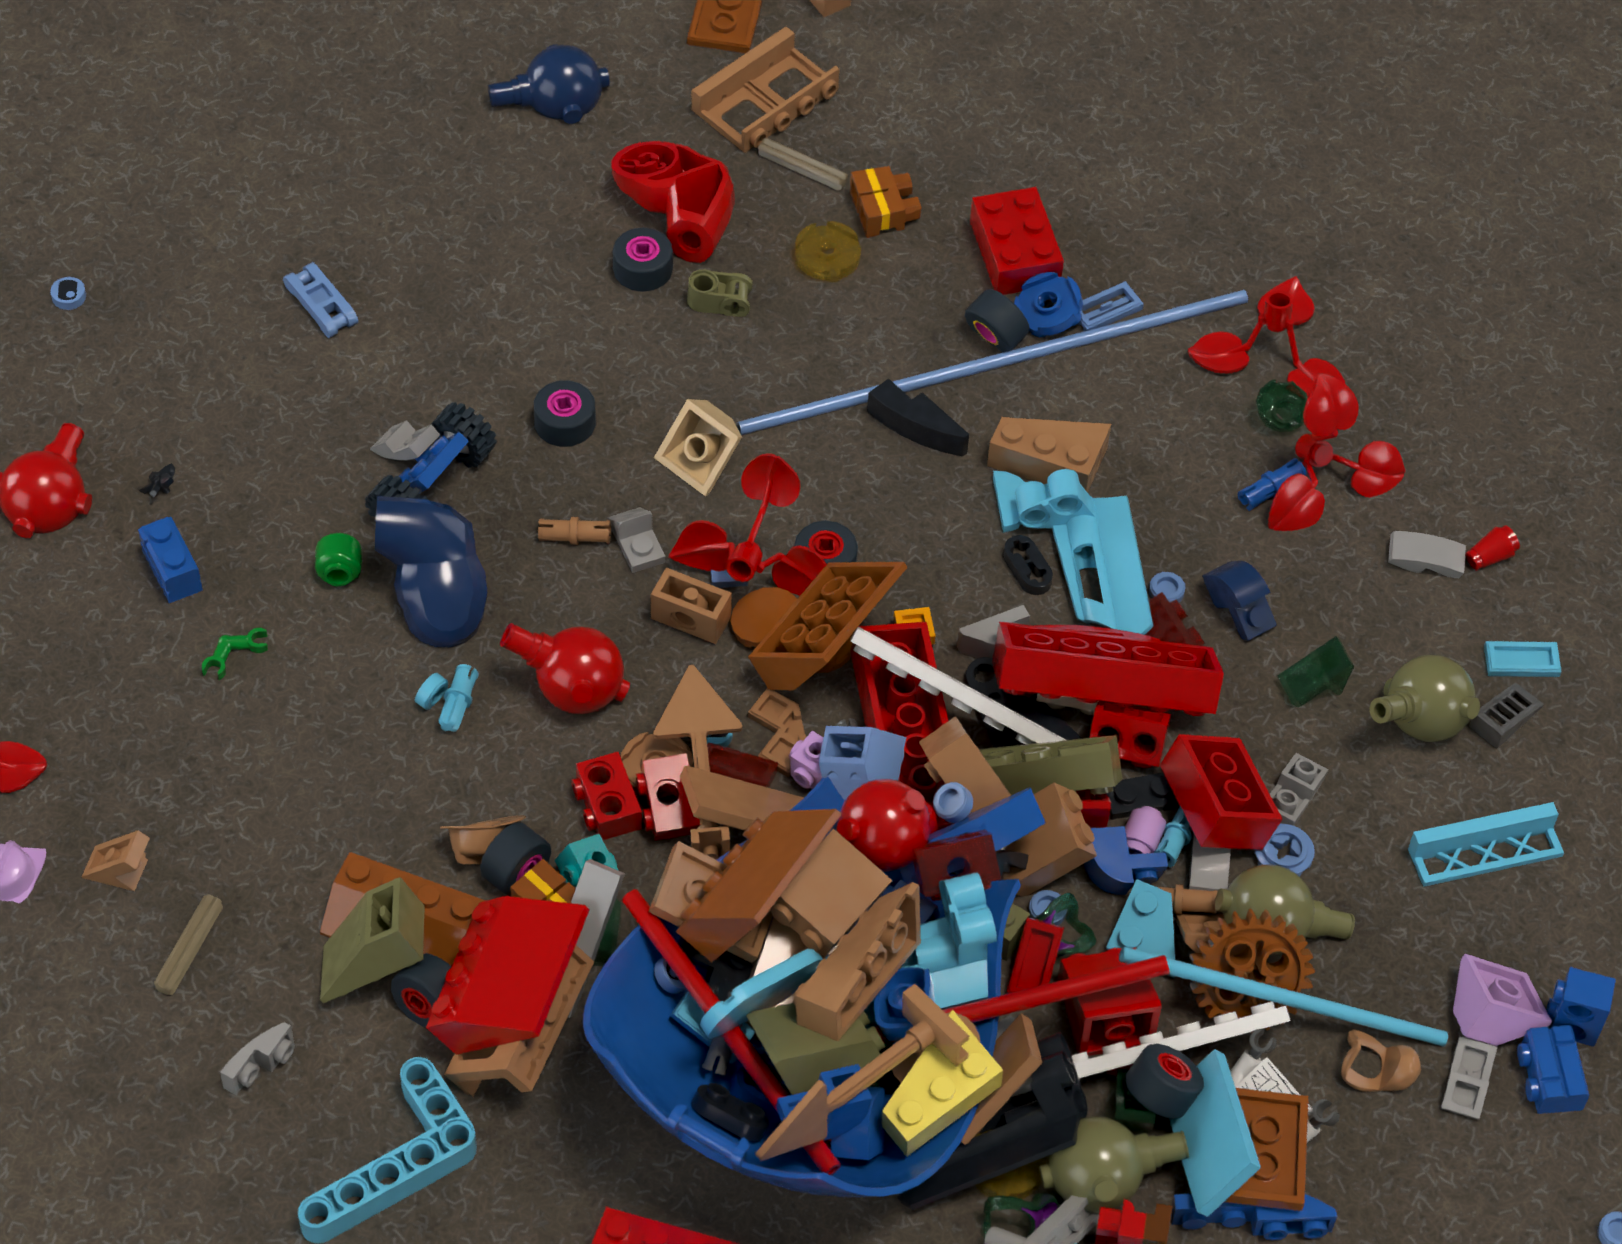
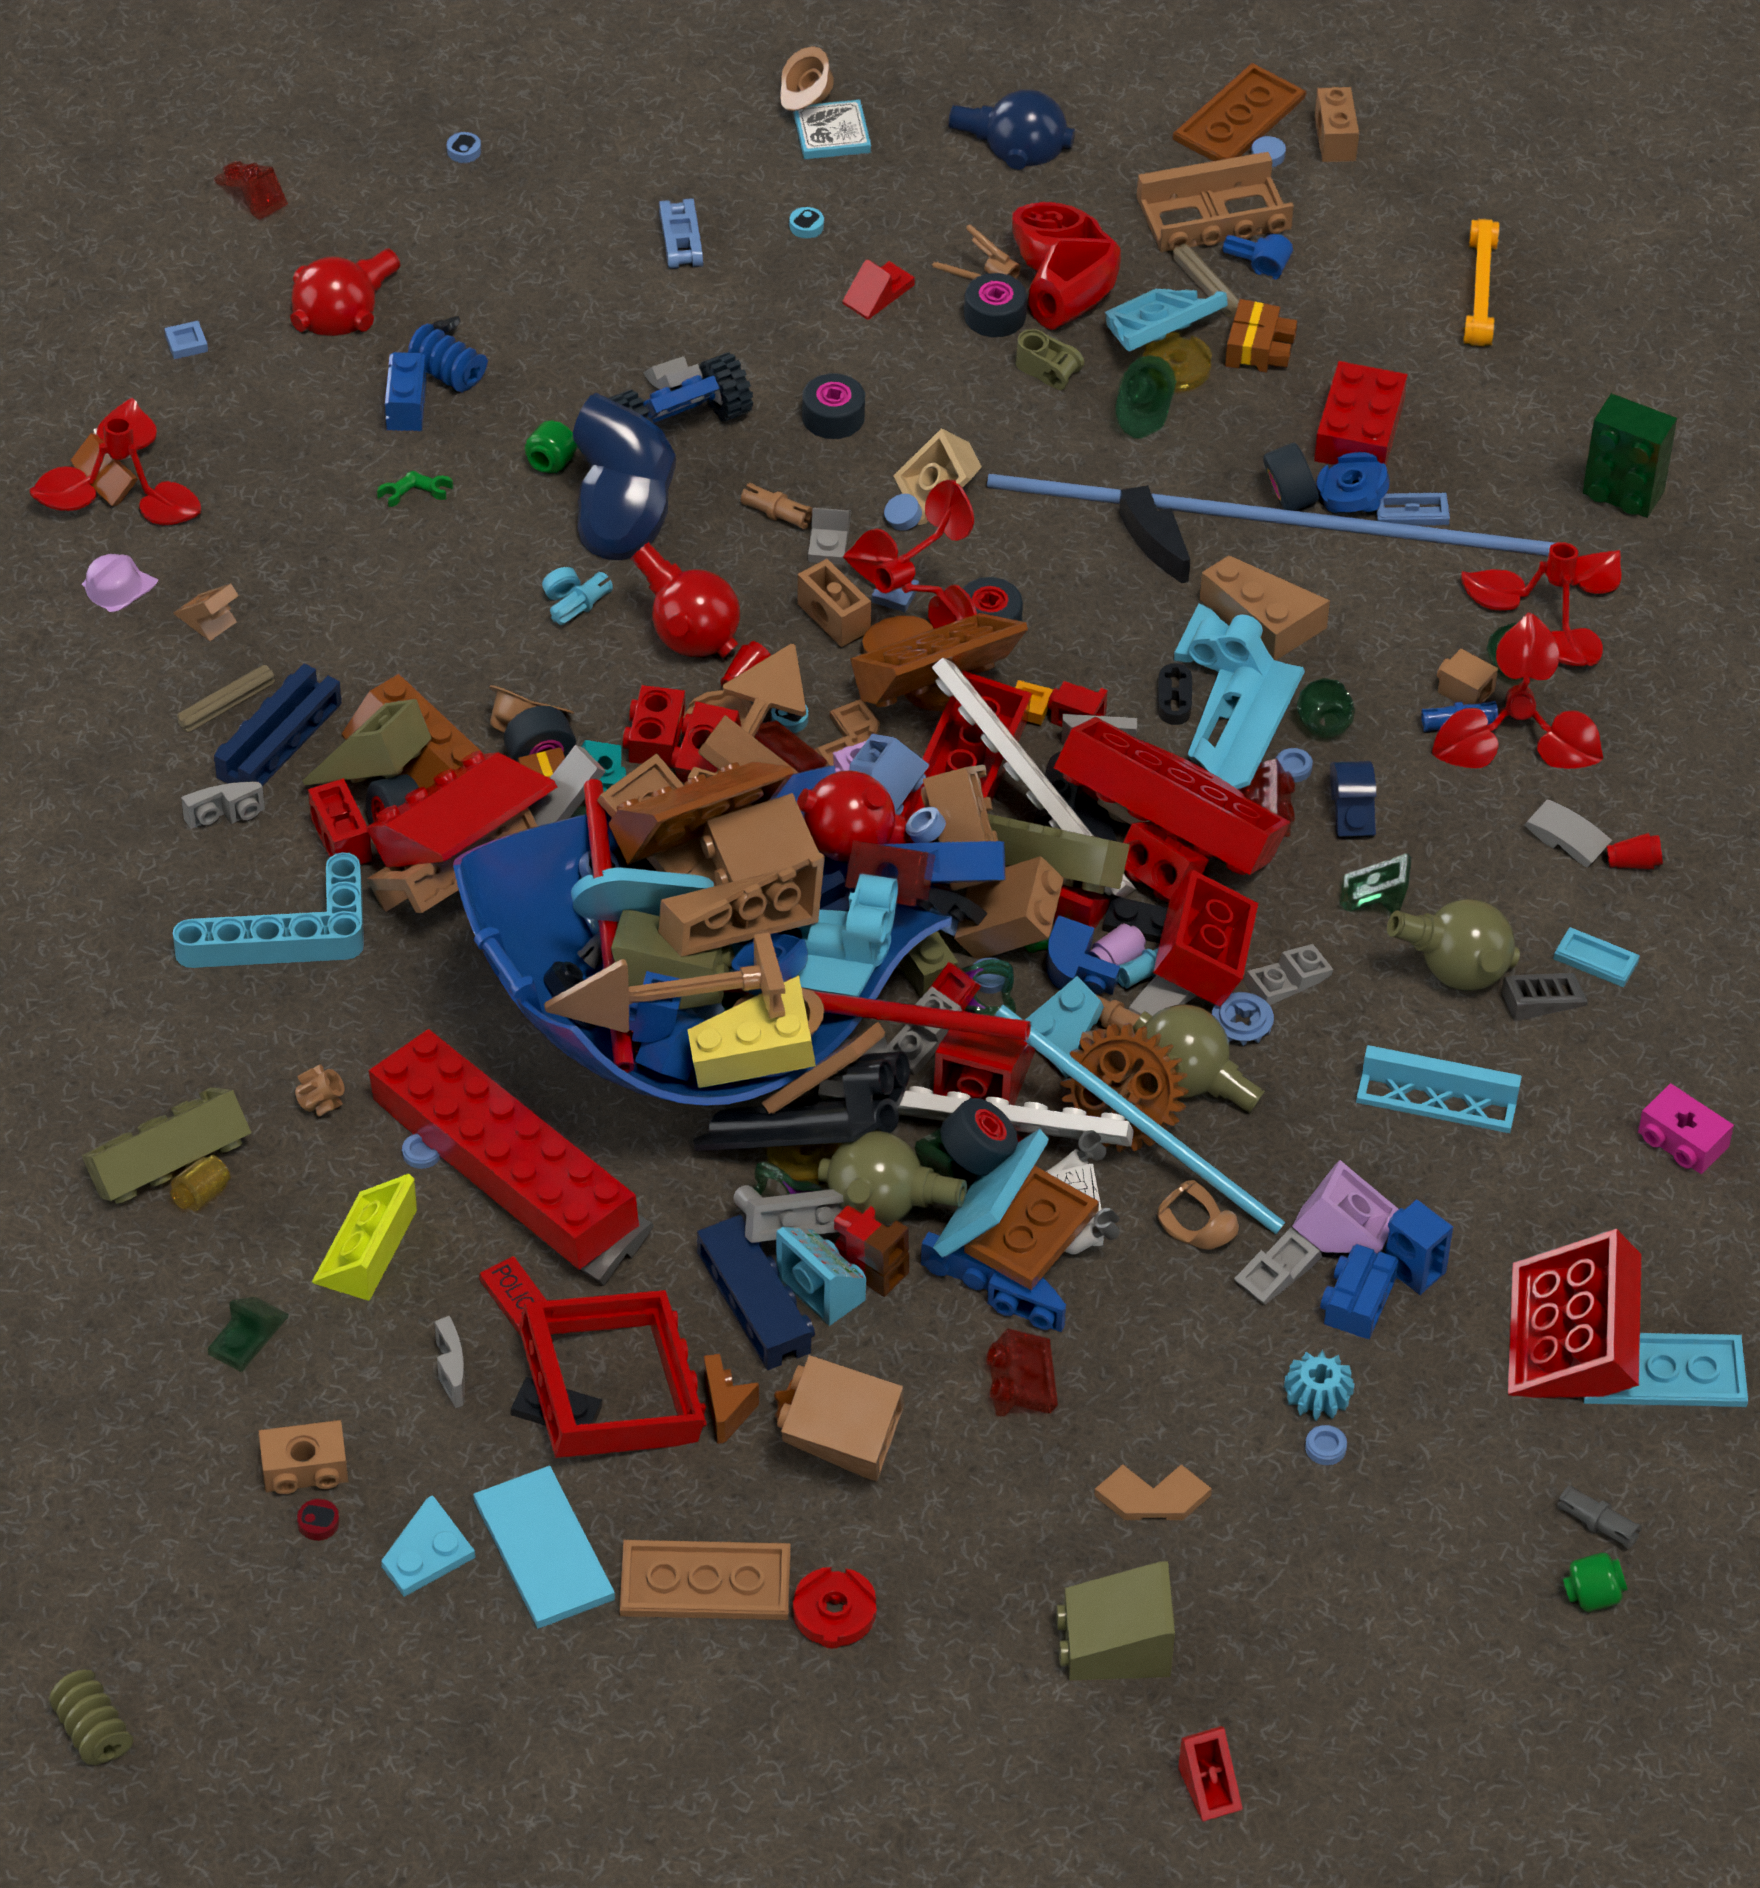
camera: 30 degrees right, 5 degrees down
(188, 512) = (447, 358): none -> blue piece
(261, 957) = (278, 728): none -> dark blue brick
(344, 110) = (806, 79): none -> medium nougat piece
(384, 1028) = (339, 820): none -> red brick
(390, 147) = (832, 129): none -> tile
(425, 245) = (806, 222): none -> medium azure tile
(528, 284) = (876, 288): none -> slope
(622, 220) = (997, 263): none -> medium nougat plant
(649, 700) = (746, 658): none -> red cone
(688, 490) = (903, 512): none -> medium blue tile
(774, 21) = (1272, 145): none -> medium blue tile
(789, 214) = (1159, 313): none -> medium azure wing
(826, 293) = (1145, 396): none -> clear green piece
(840, 120) = (1266, 256): none -> blue axle
(957, 612) = (1076, 701): none -> red brick
(1035, 971) = (921, 1041): none -> light grey slope
(1052, 118) = (1480, 327): none -> light orange piece
(1168, 519) = (1328, 700): none -> clear green hair
(1257, 447) = (1466, 678): none -> medium nougat brick
(1266, 189) = (1629, 455): none -> dark green brick
(1574, 1189) = (1319, 1385): none -> medium azure gear

